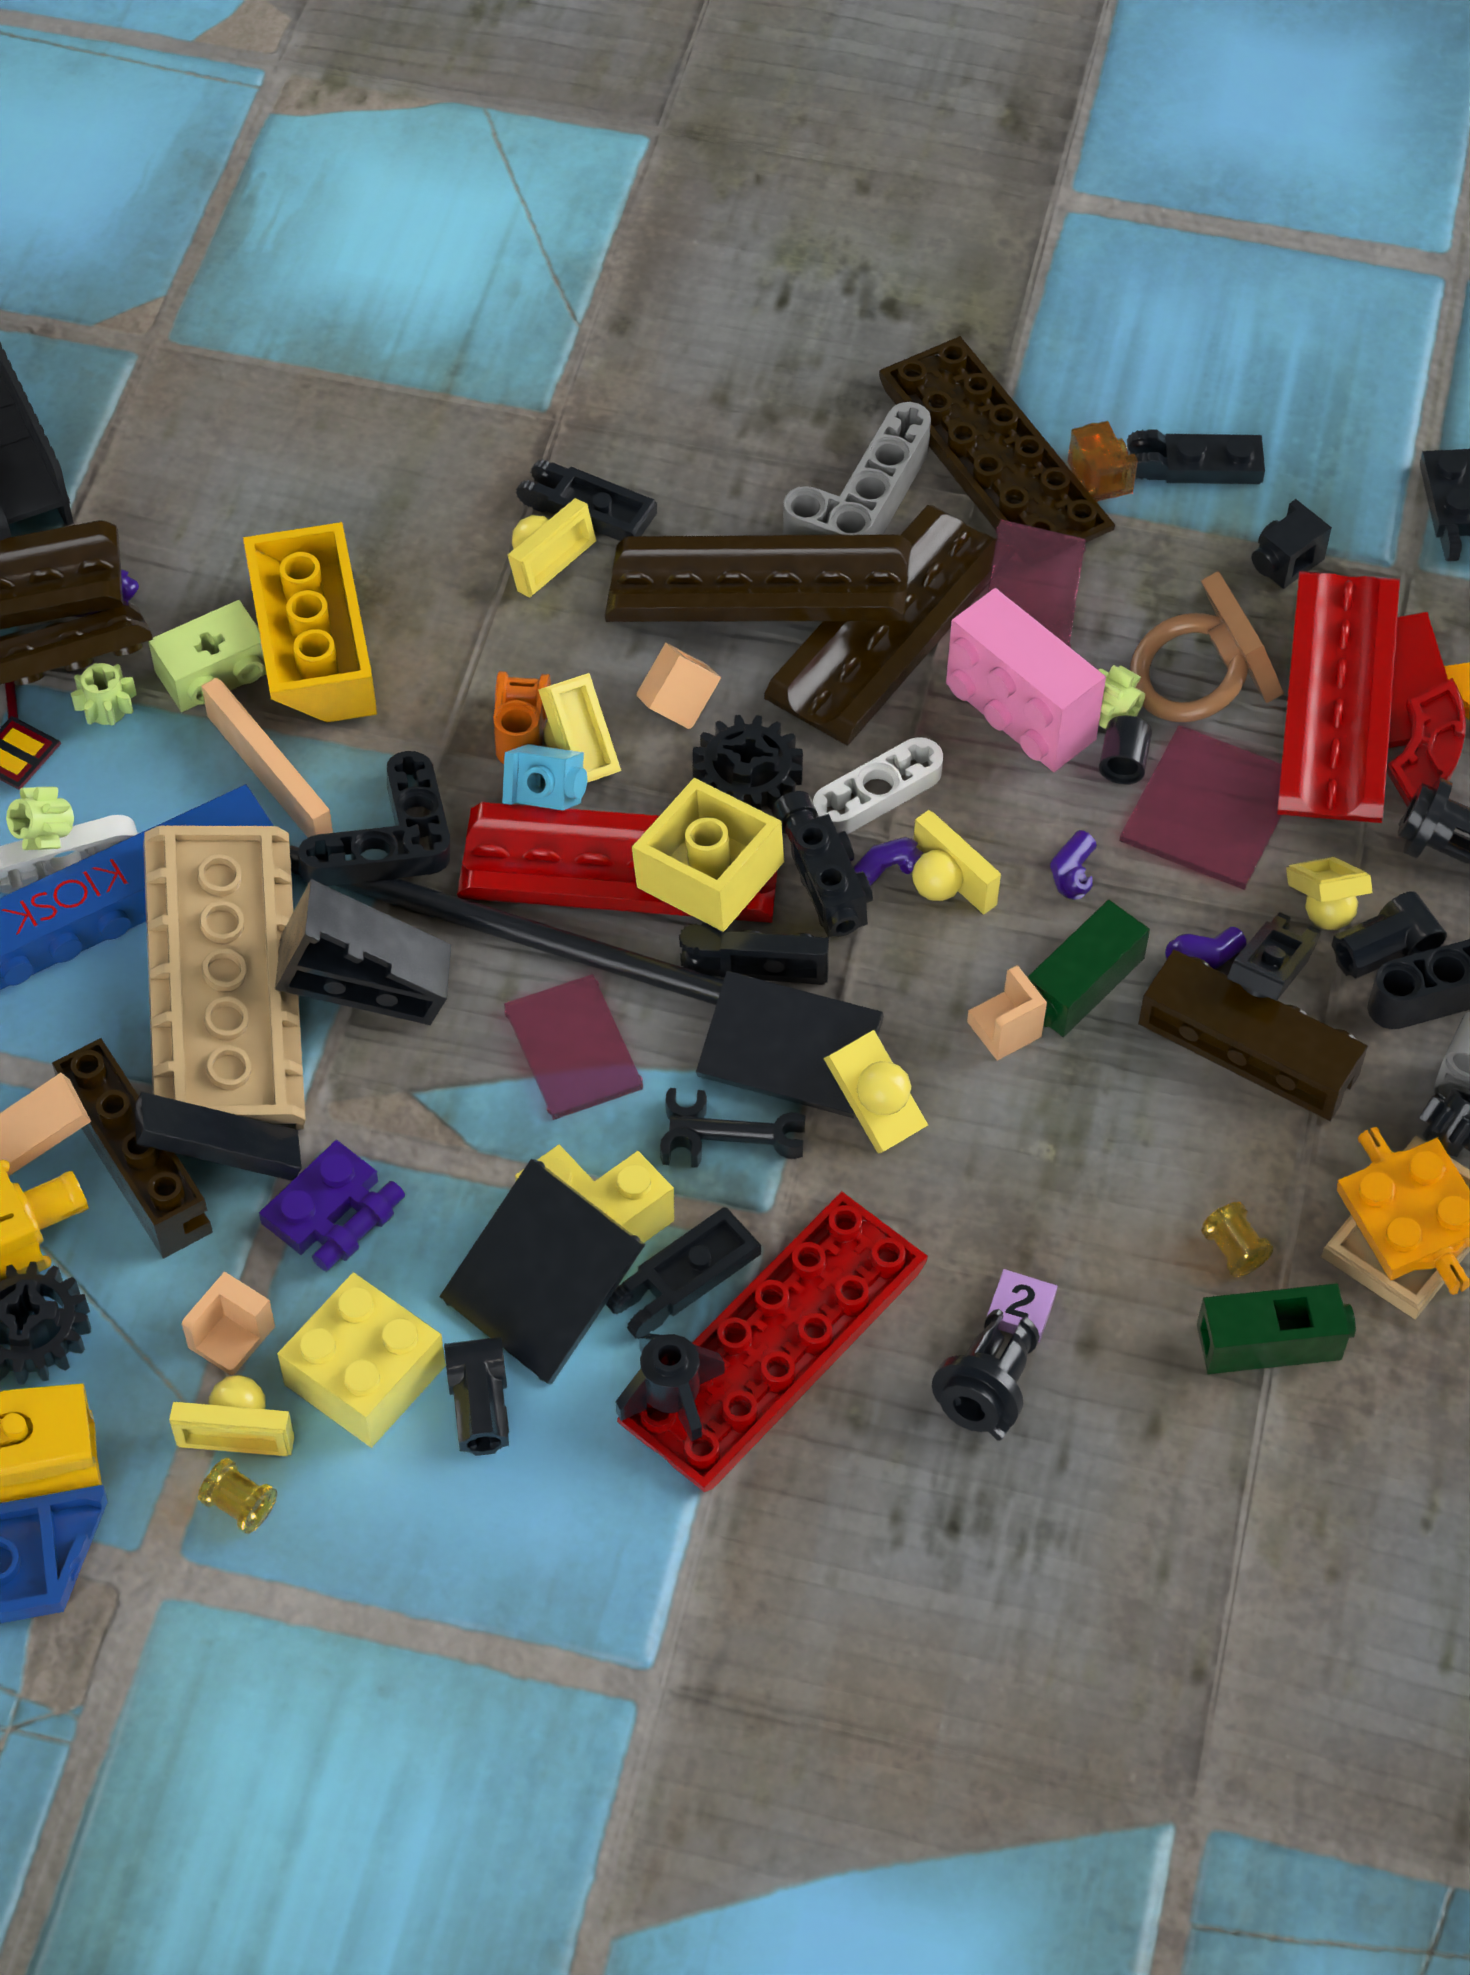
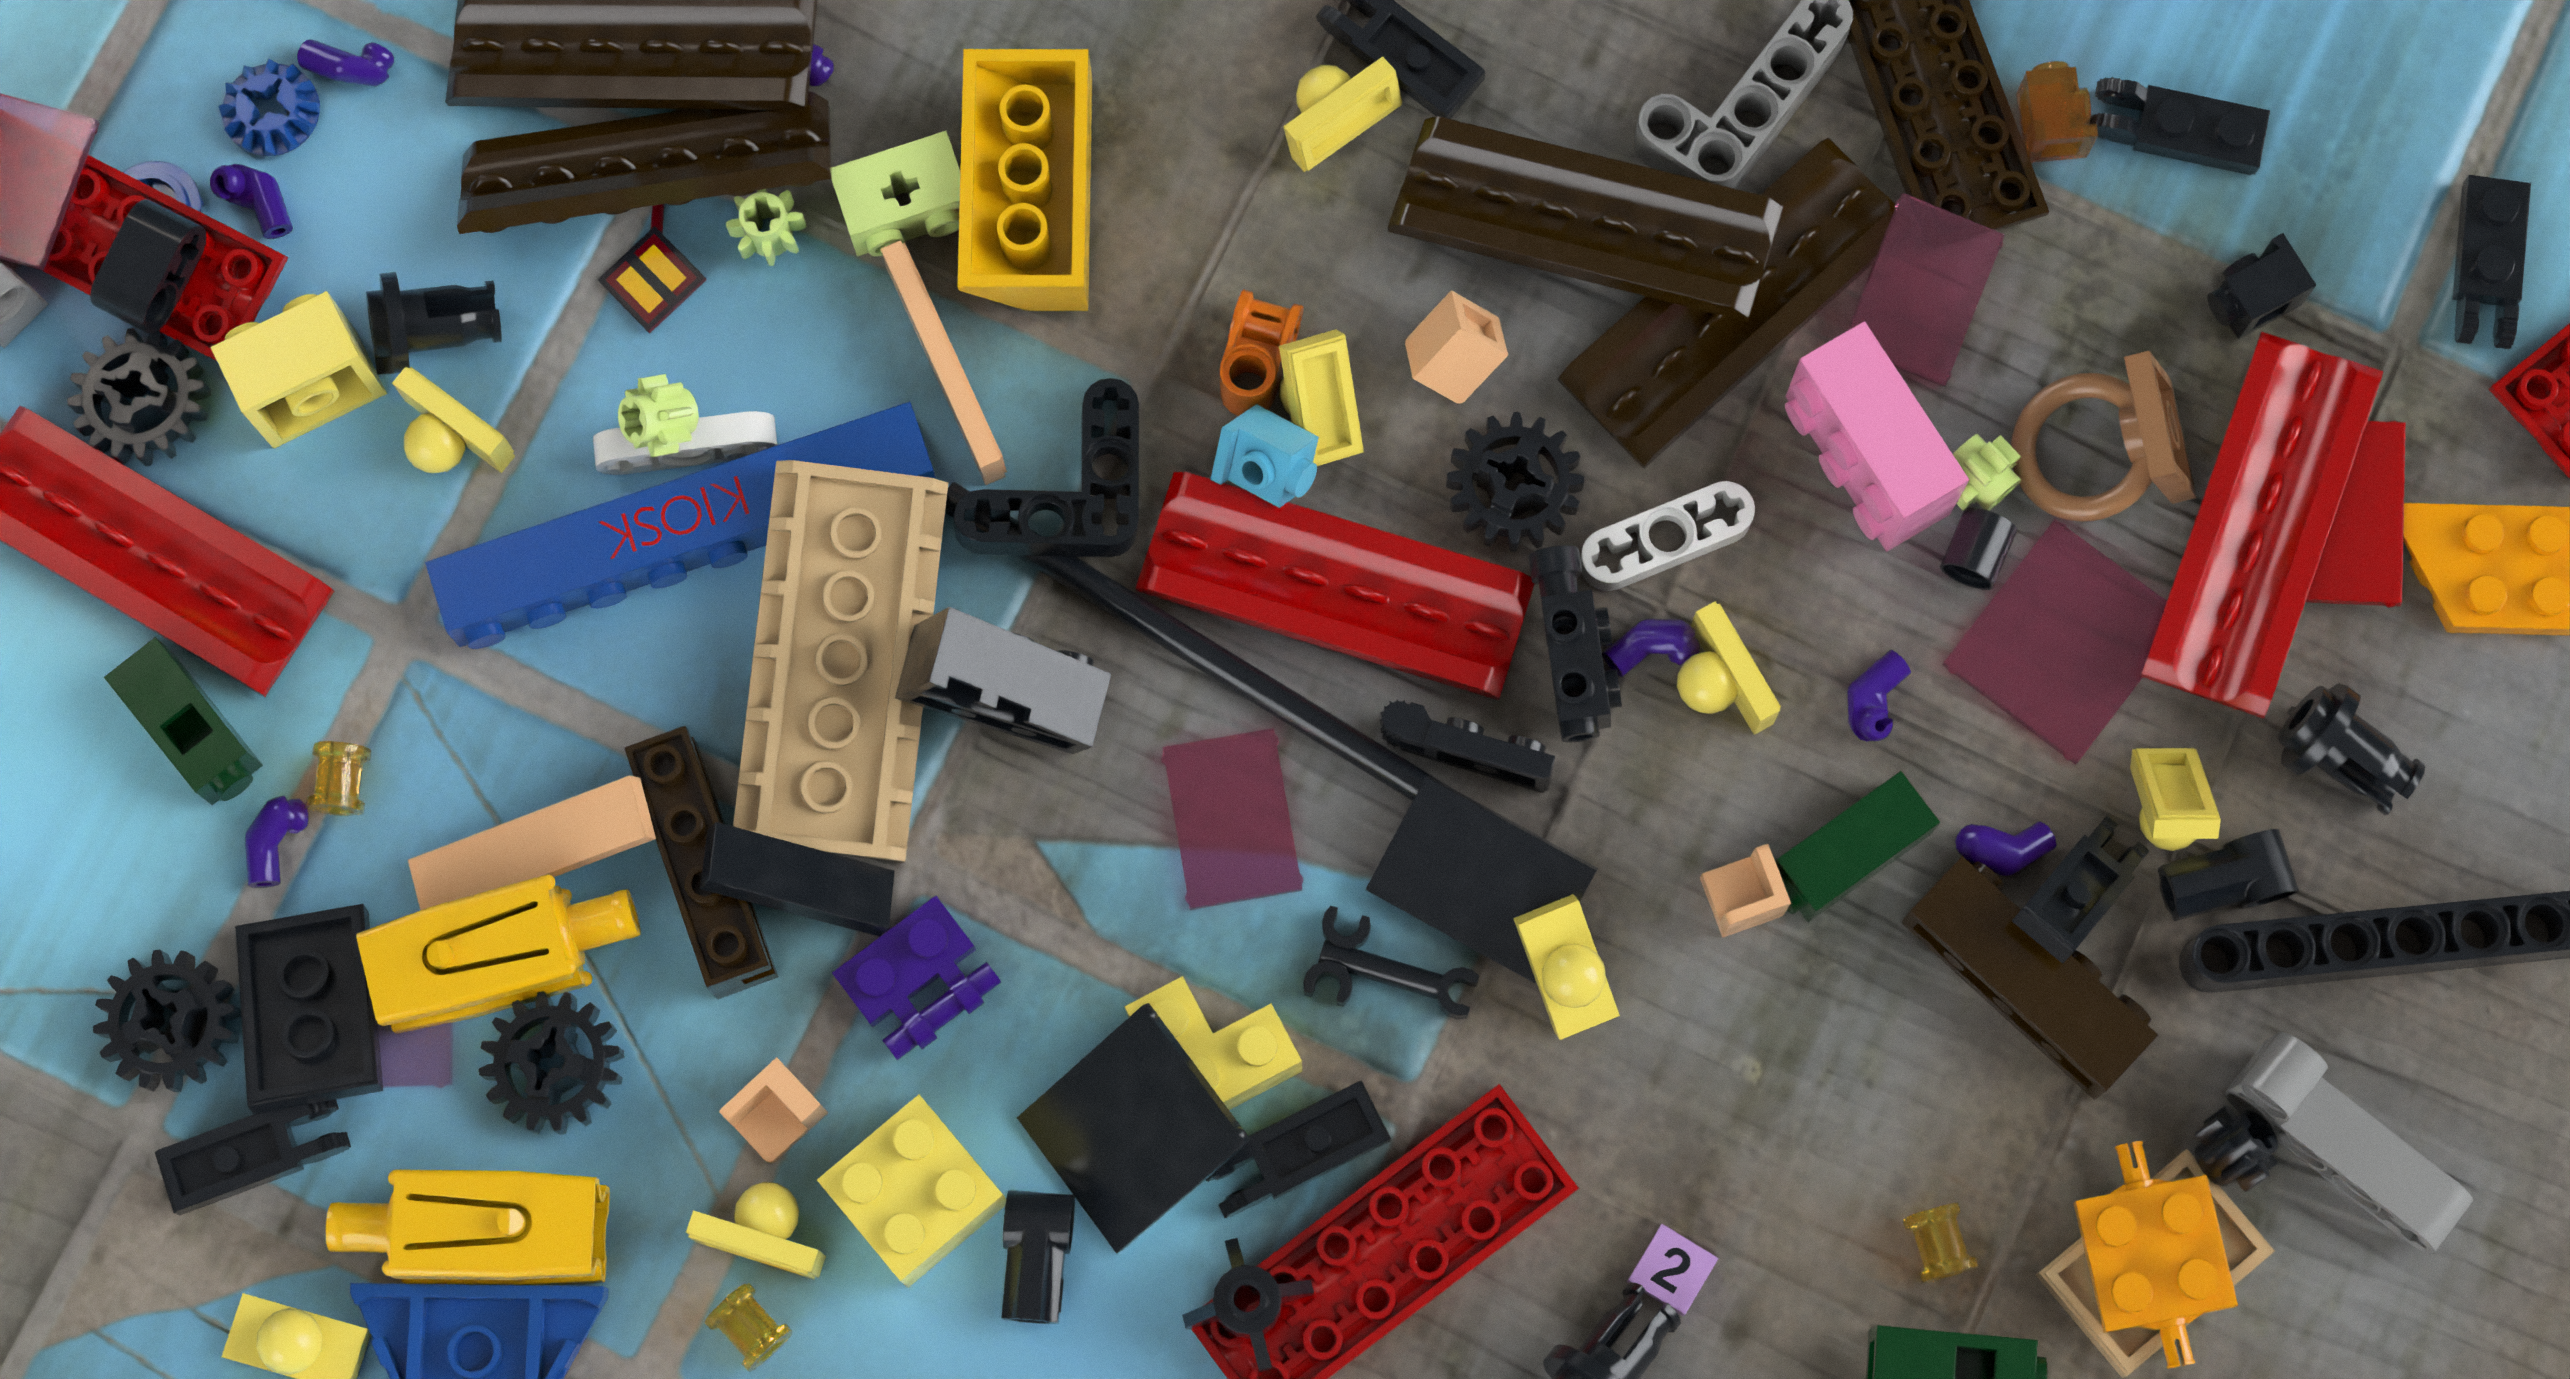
camera: 15 degrees right, 20 degrees up
(708, 854) = (1434, 624): light yellow brick -> none
(1435, 739) = (2360, 618): red tile -> none

